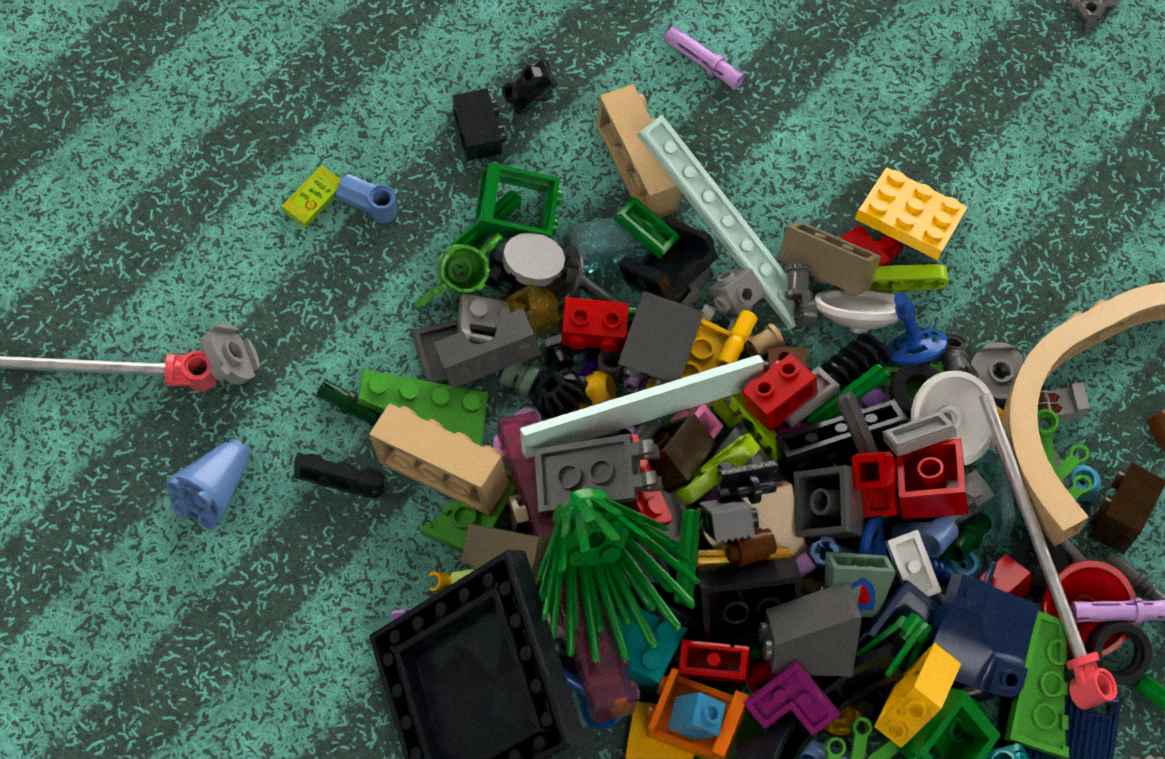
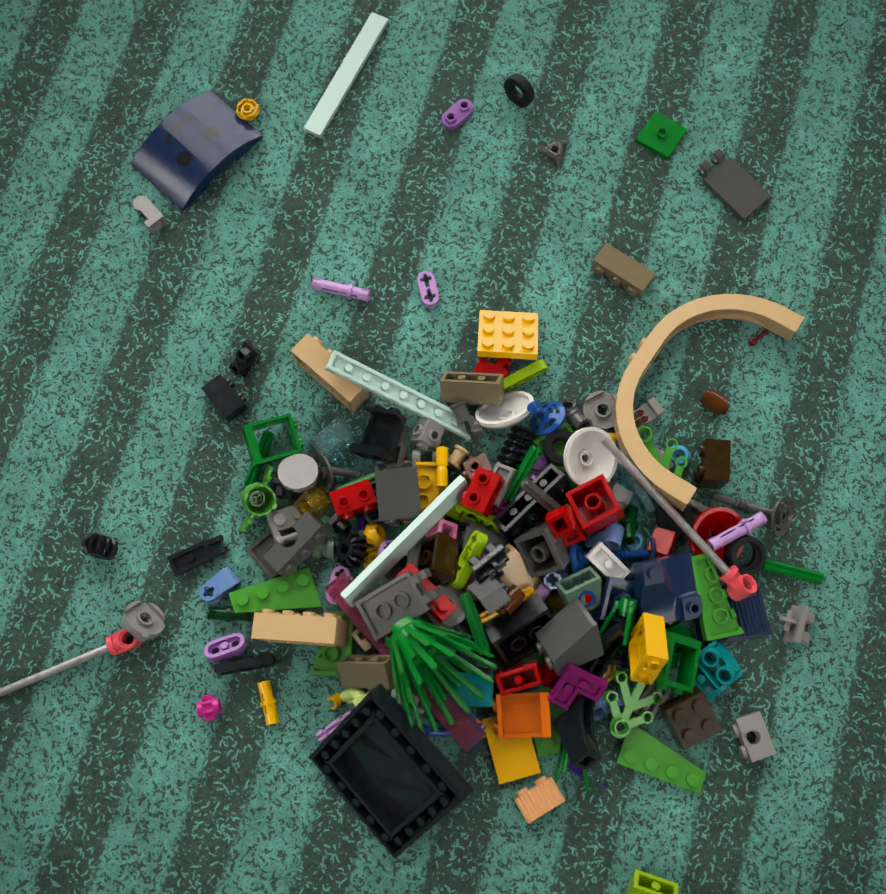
camera: 15 degrees left, 10 degrees up
(209, 483) = (170, 707): medium blue cone -> none
(216, 234) = (99, 546): none -> black gear
(262, 508) = (209, 707): none -> dark pink gear
(312, 197) = (147, 490): lime tile -> none
(323, 441) = (225, 647): none -> medium lavender plate
(341, 307) = (196, 556): none -> black hinge
(346, 541) = (268, 702): none -> yellow pin
(352, 359) = (221, 584): none -> medium blue piece
(367, 196) = (179, 477): medium blue piece -> none
(643, 230) = (355, 422): green tile -> none
(696, 716) = (524, 719): dark azure brick -> none
(832, 110) = (432, 288): none -> lavender beam
(919, 433) = (576, 481): light grey tile -> none
(1115, 203) = (622, 270): none -> dark tan brick

